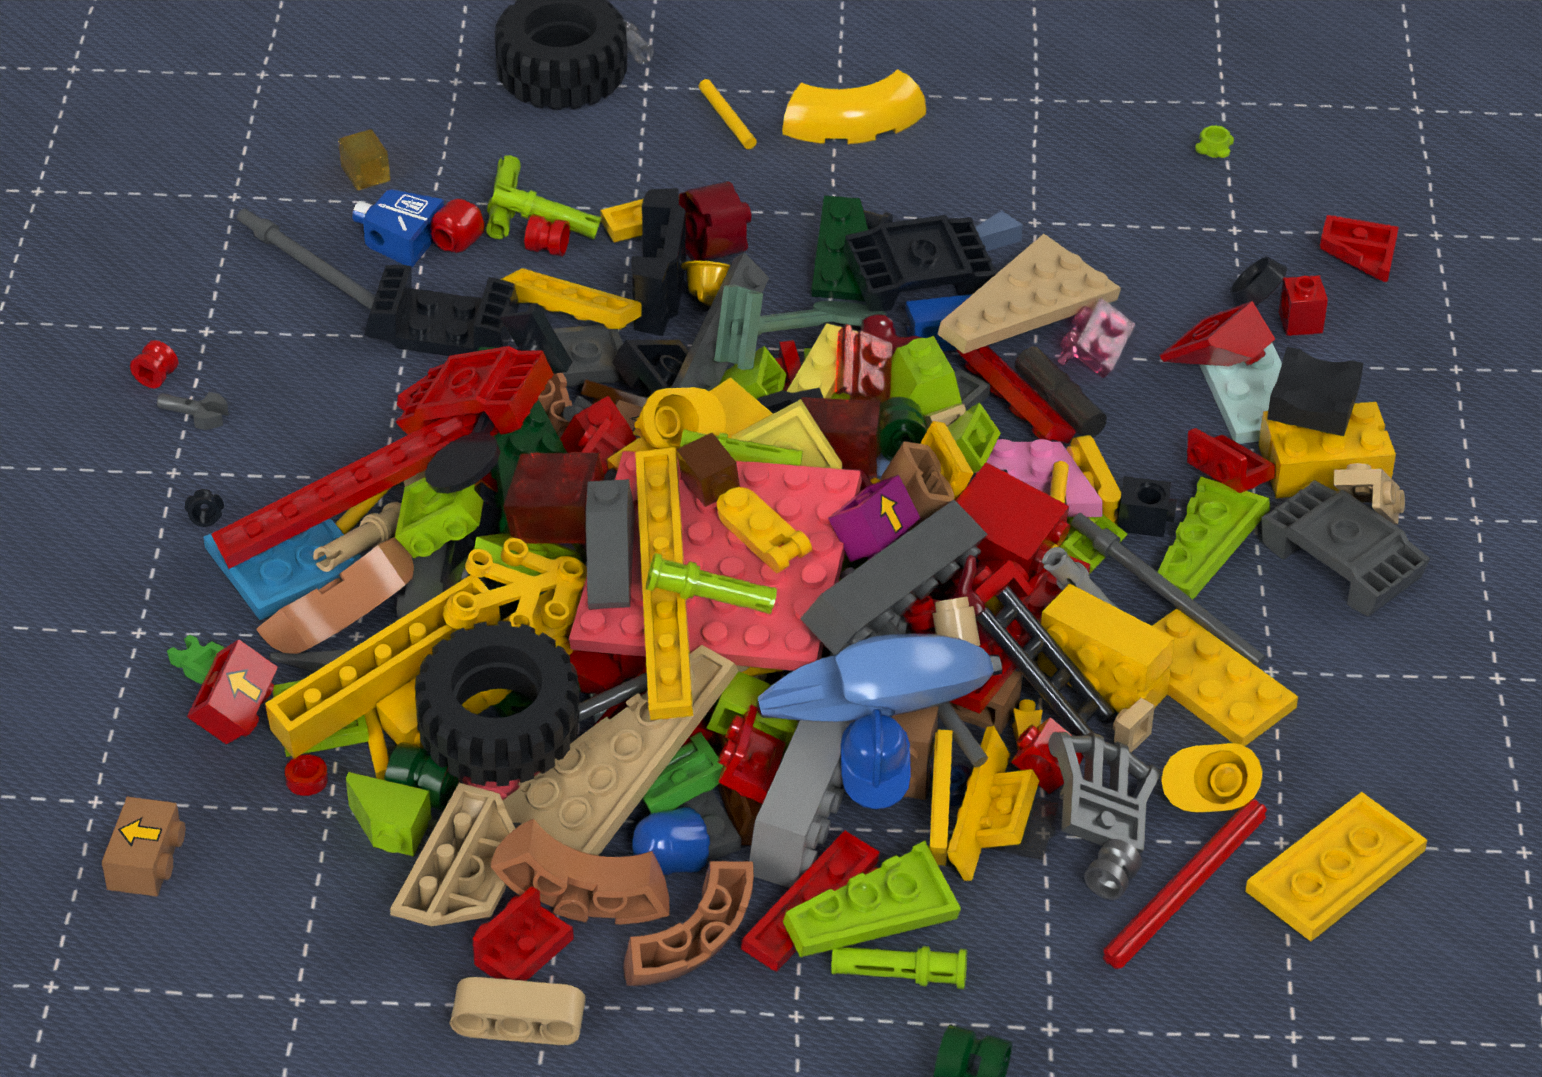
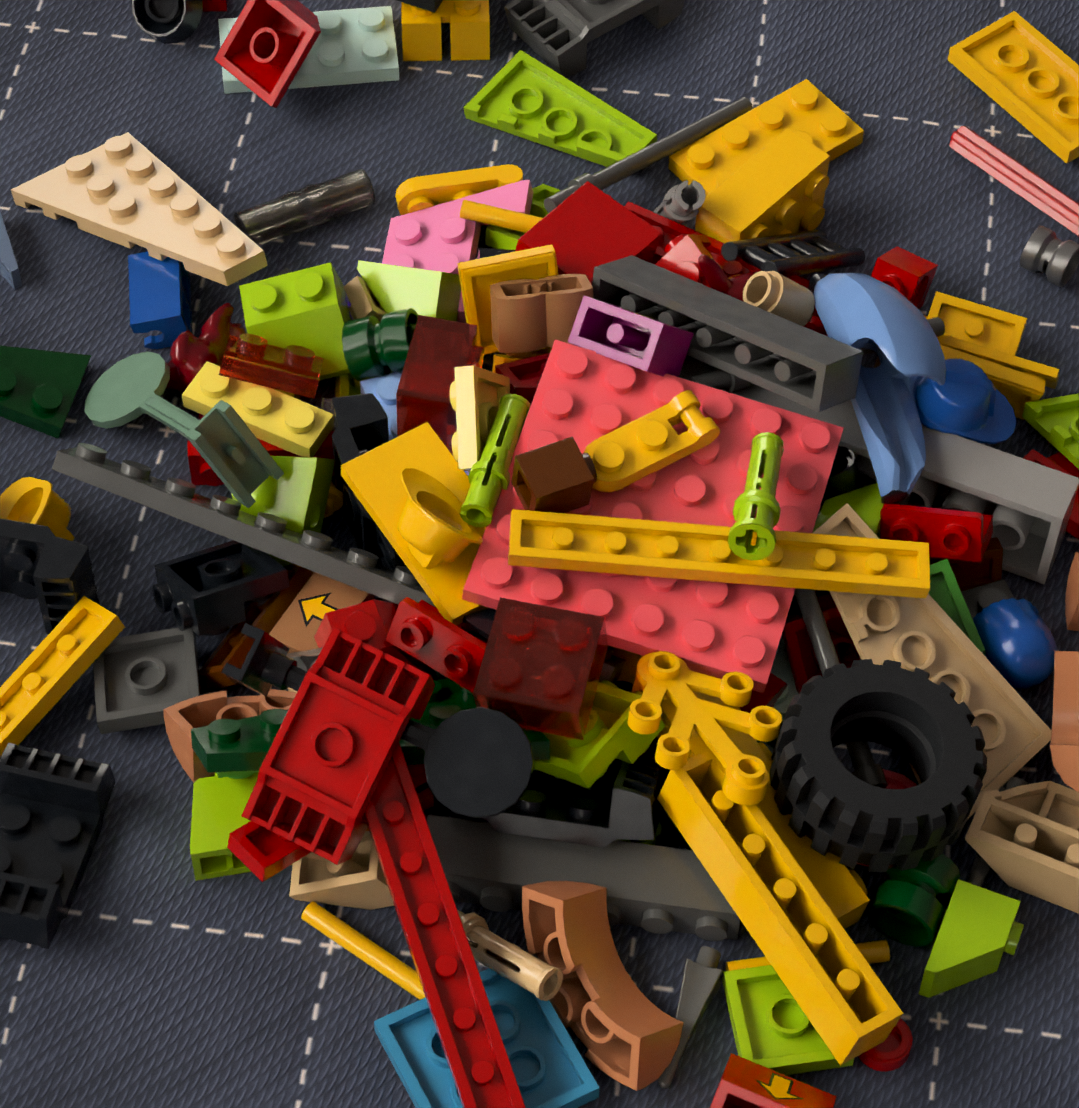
camera: 85 degrees left, 10 degrees up
(435, 518) = (508, 845): lime plate -> none
(609, 543) = (655, 604): dark grey slope -> none
(917, 256) = (67, 302): black plate -> none
(1023, 399) = (316, 243): red plate -> none
(1094, 810) = (946, 237): dark grey plate -> none
(1097, 337) = (215, 167): clear pink bracket -> none
(1134, 724) = (849, 213): tan plate -> none
(1145, 506) = (516, 146): black brick -> none
(1212, 777) = (940, 150): yellow piece -> none
(1228, 461) = (455, 75): red bracket -> none

